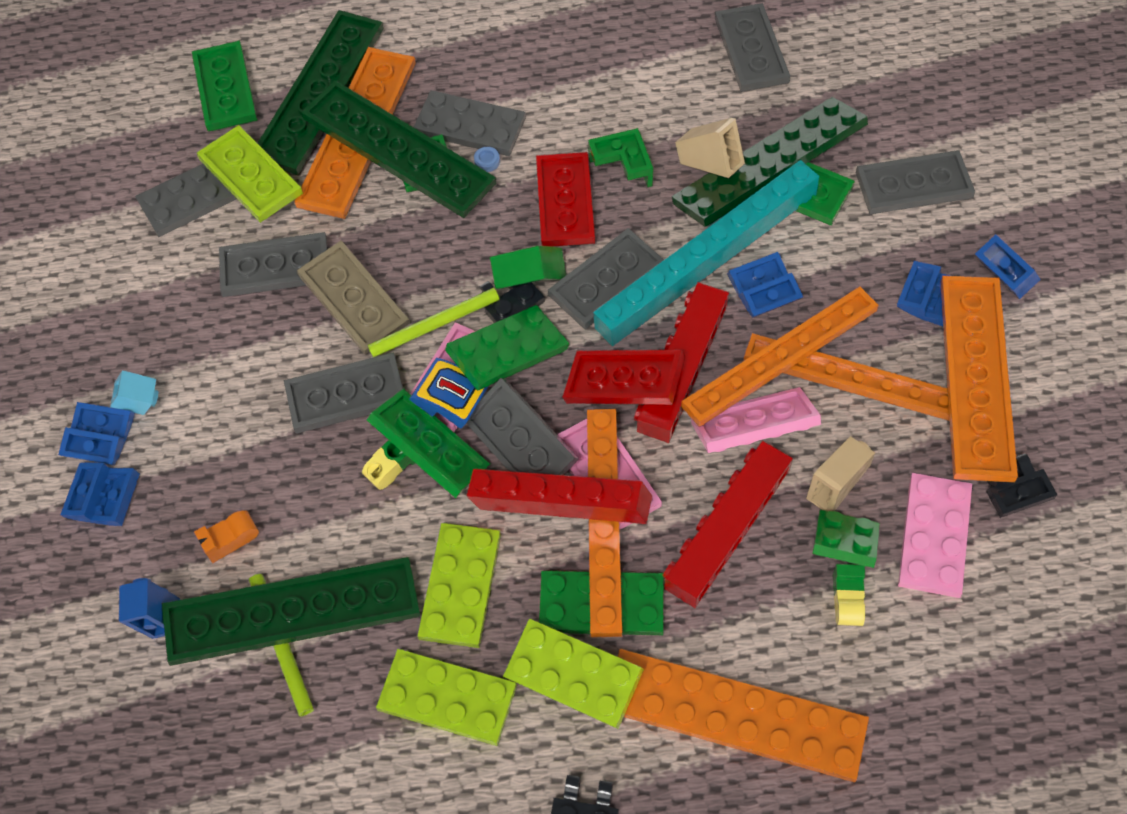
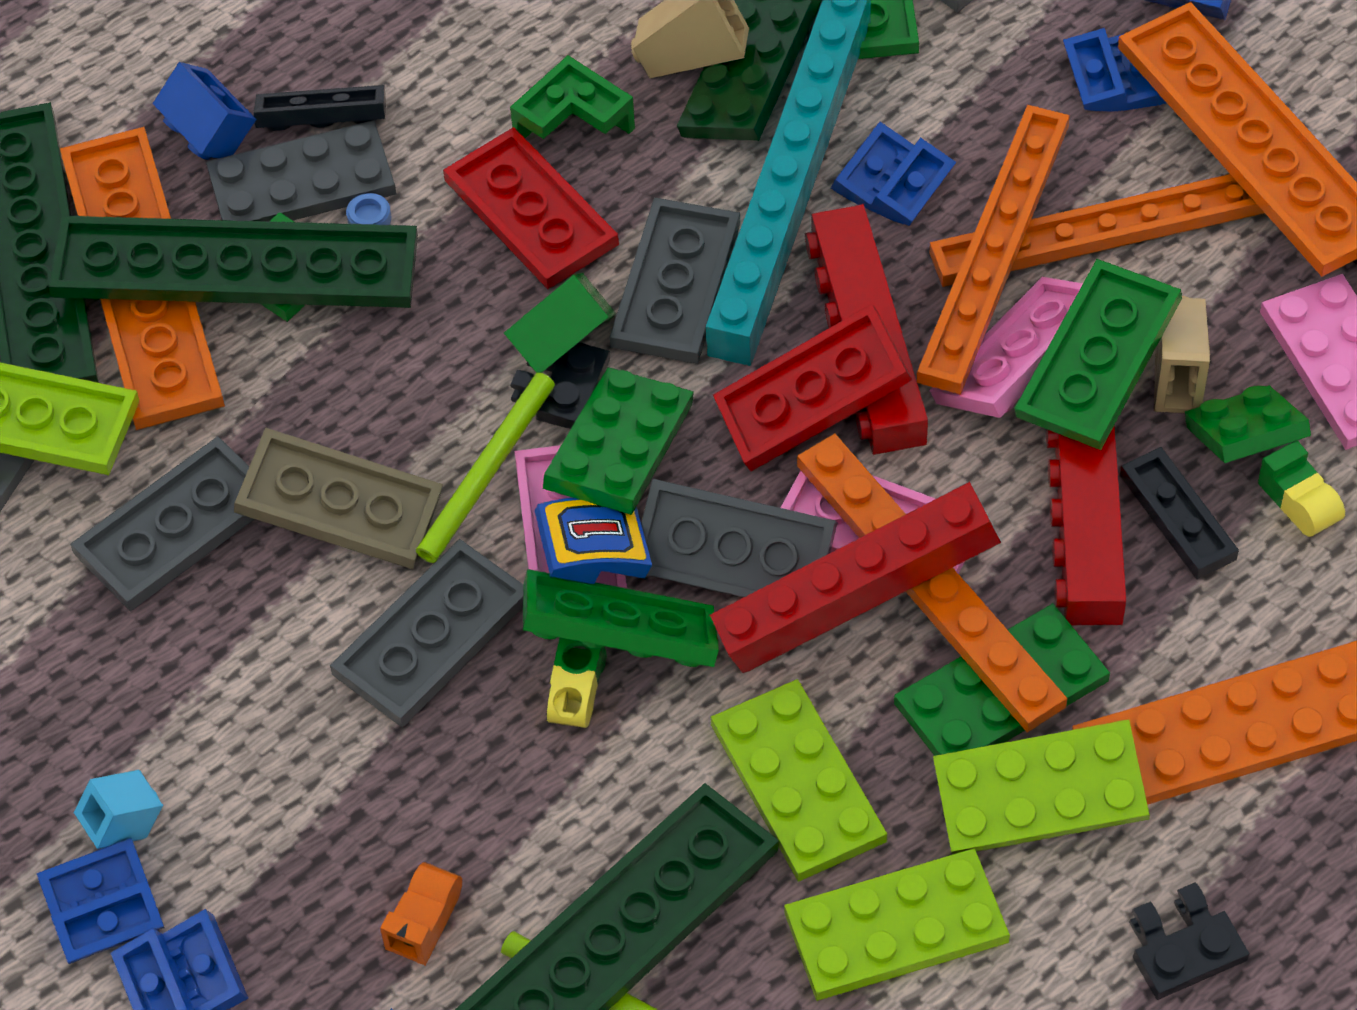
camera: 35 degrees left, 5 degrees down
(445, 63) = (203, 112): none -> blue brick
(504, 91) = (319, 107): none -> black plate
(771, 565) = (1179, 513): none -> black plate
(784, 449) = (1098, 354): none -> green plate

